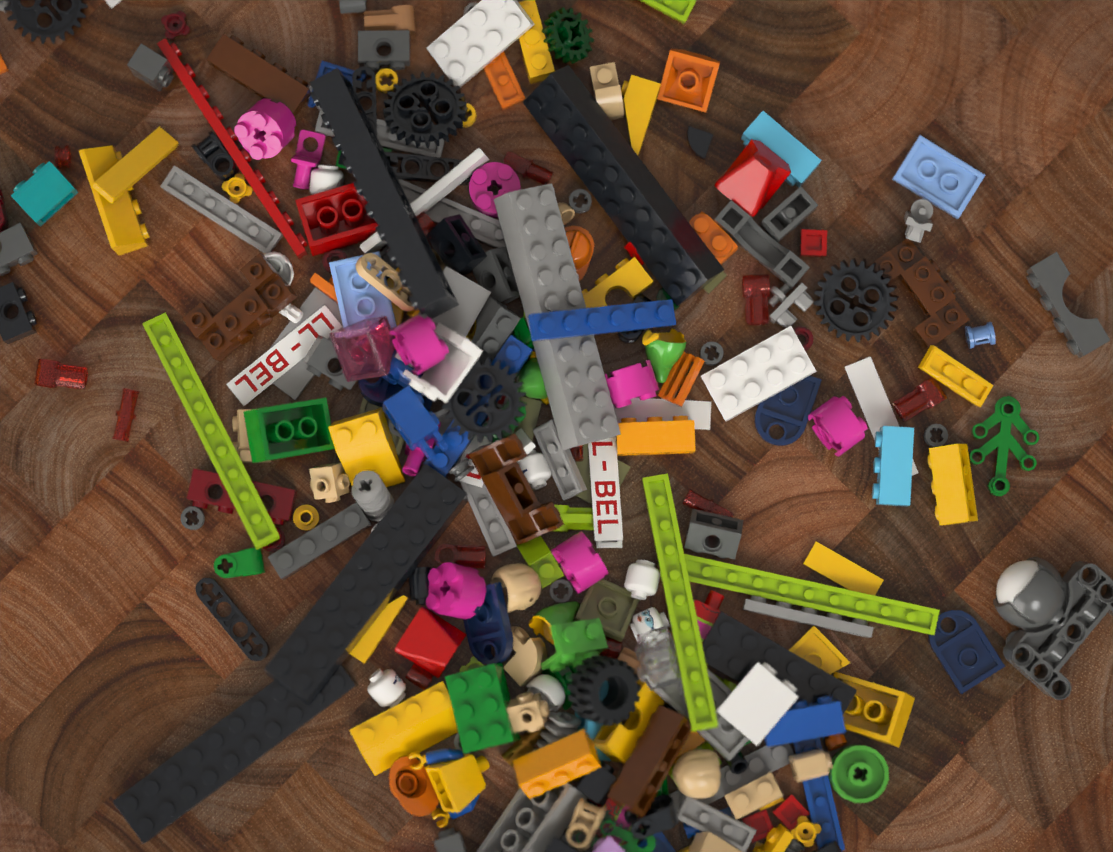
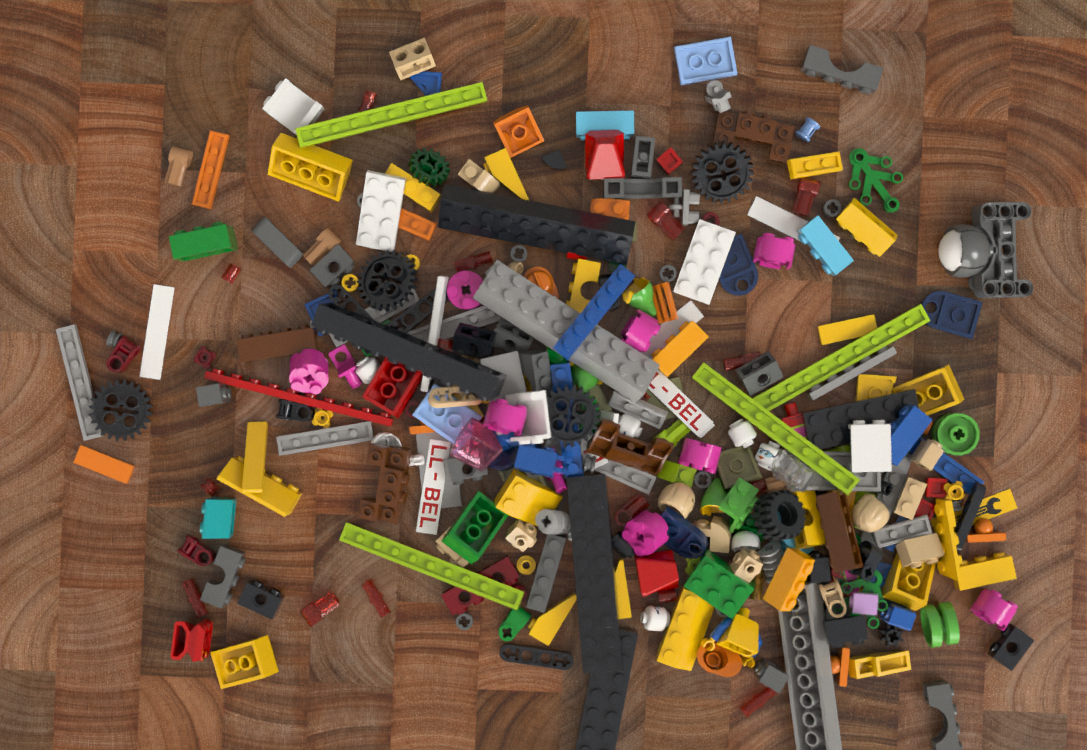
camera: 30 degrees left, 5 degrees up
(276, 595) = (548, 623): none -> yellow slope

